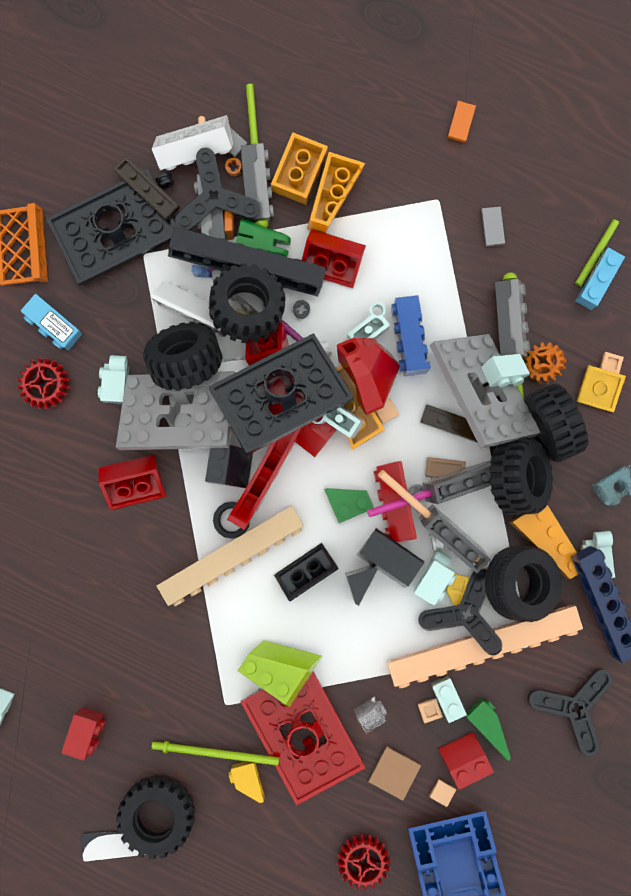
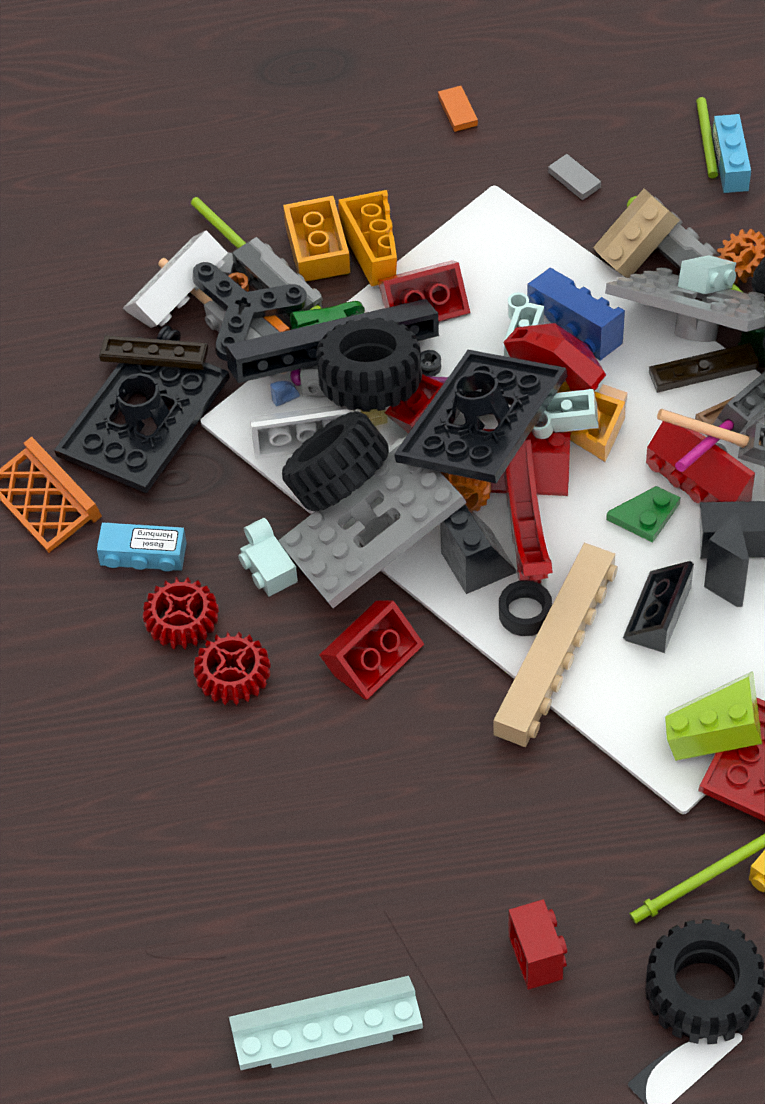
camera: 30 degrees left, 30 degrees down
(49, 447) = (230, 678): none -> red gear
(490, 302) = (636, 234): none -> tan slope

